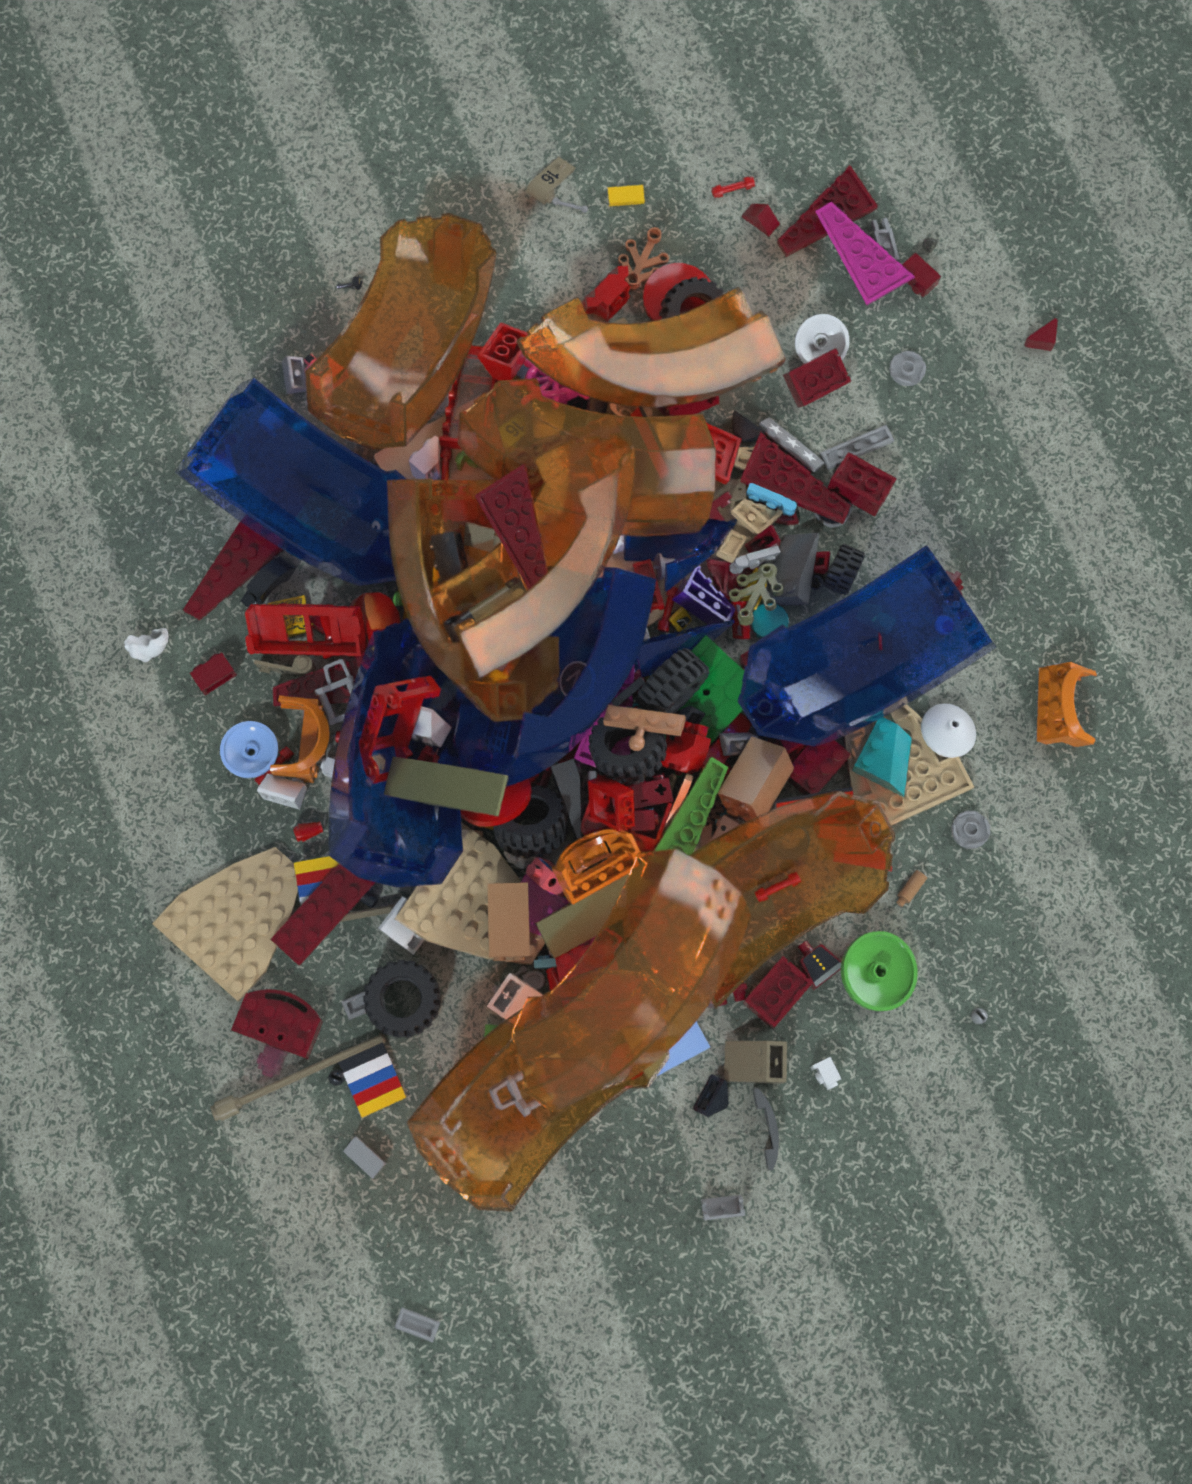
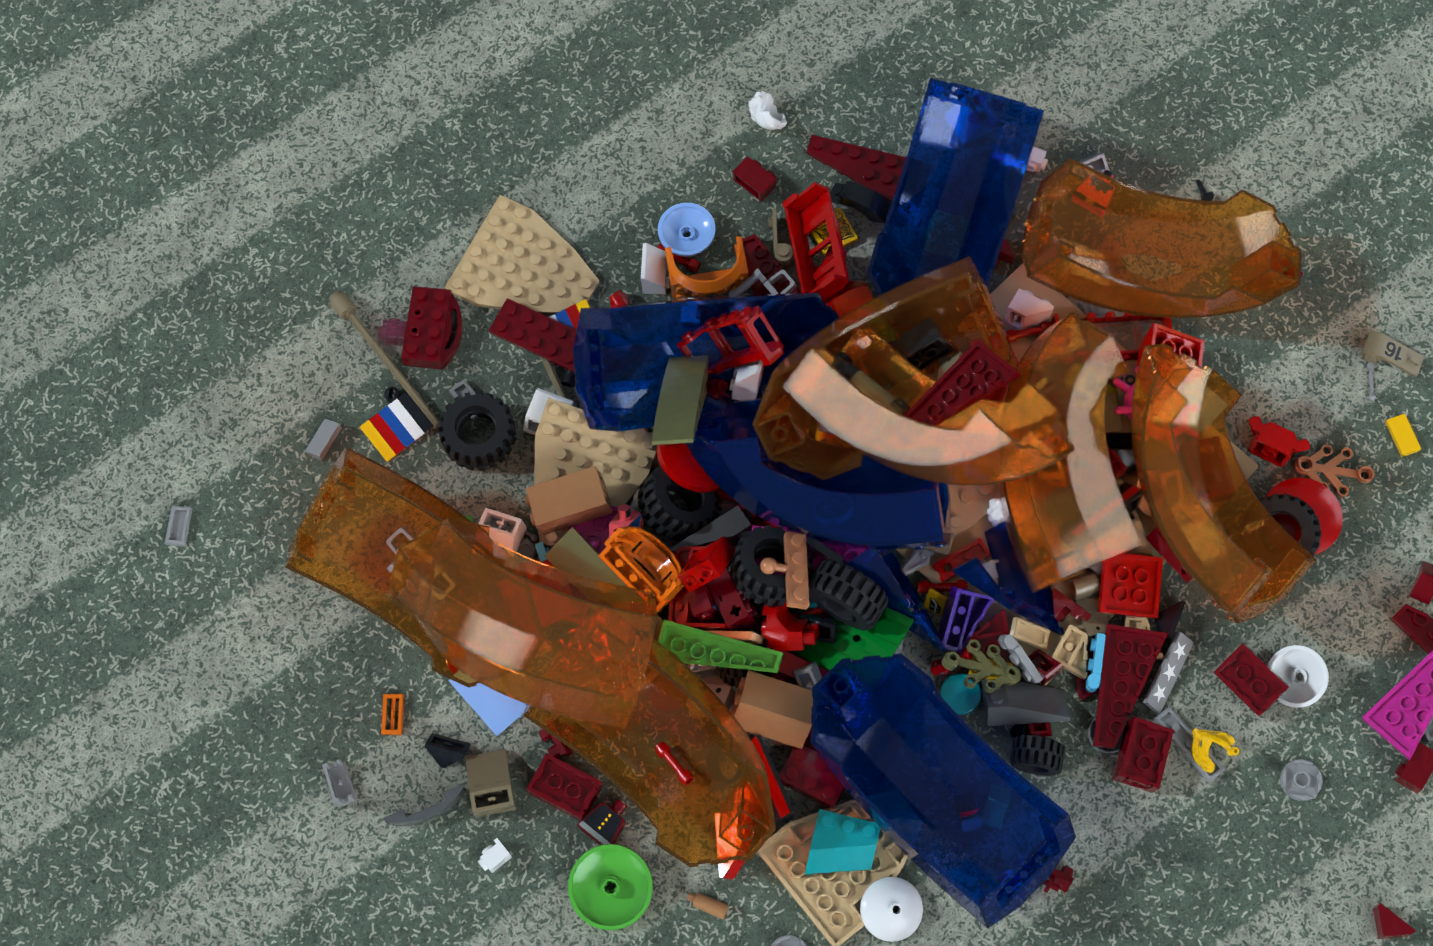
camera: 80 degrees right, 5 degrees down
(649, 1139) = (392, 731): none -> orange tile
(872, 437) = (1200, 754): none -> yellow helmet

